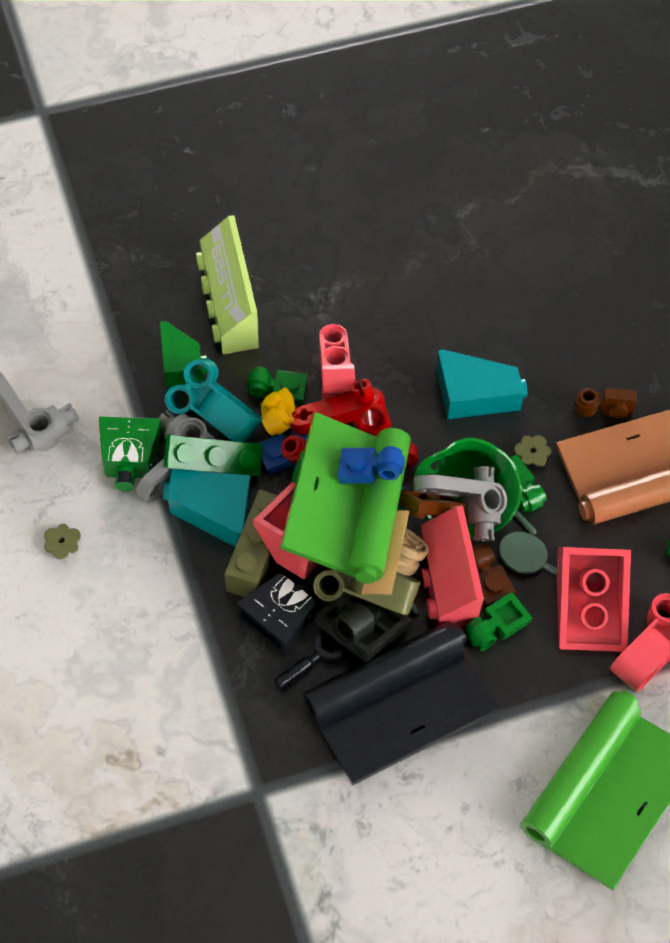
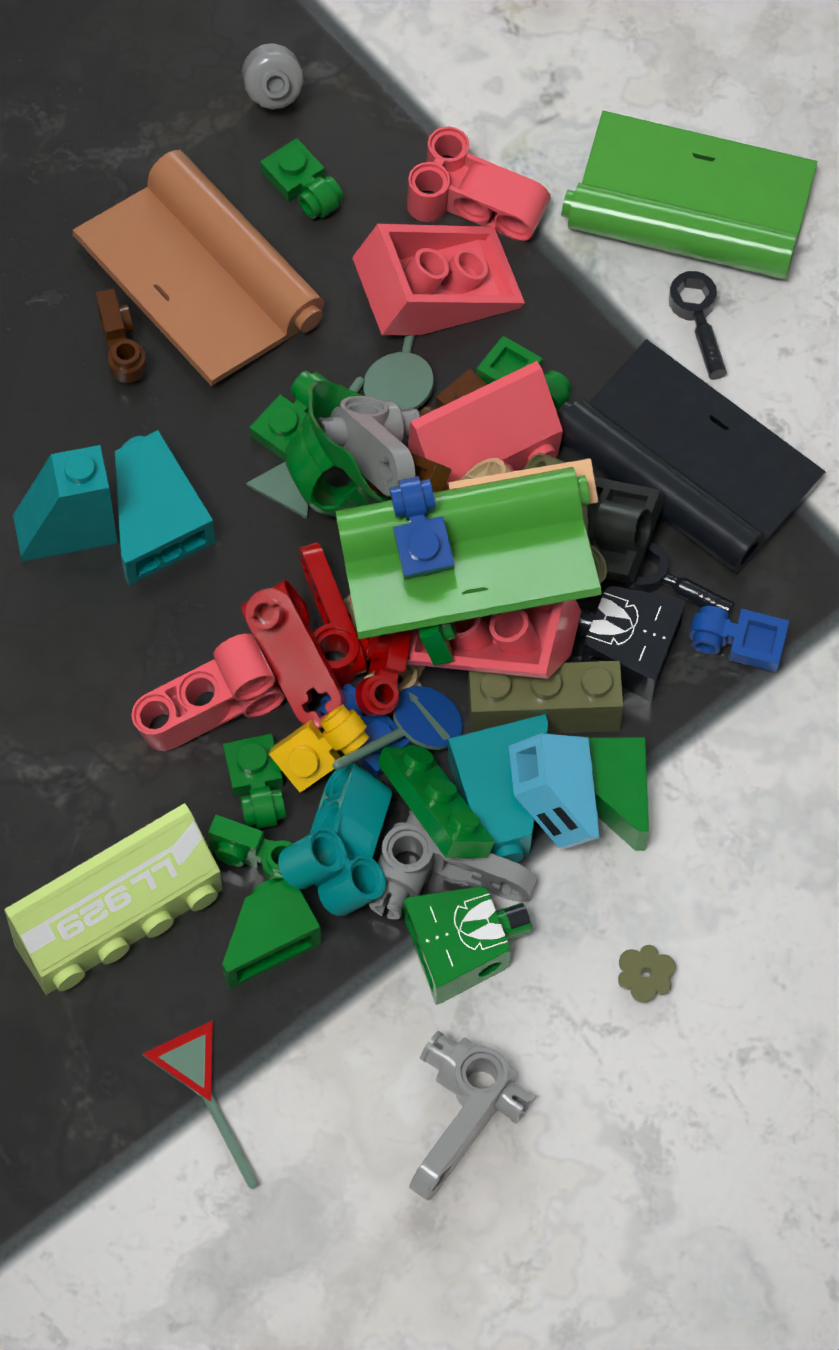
camera: 110 degrees left, 5 degrees up
(130, 307) = (190, 1062): none -> sand green piece
(182, 565) = (621, 787): none -> green slope
(189, 513) = (556, 786): none -> medium azure slope
(239, 362) = (242, 844): none -> green plate
(250, 686) = (755, 638): none -> blue plate
(275, 473) = (422, 717): none -> blue piece
(488, 331) = (66, 506): none -> teal slope
(497, 755) = (698, 313): none -> black piece
(538, 446) = (227, 403): olive plant -> none

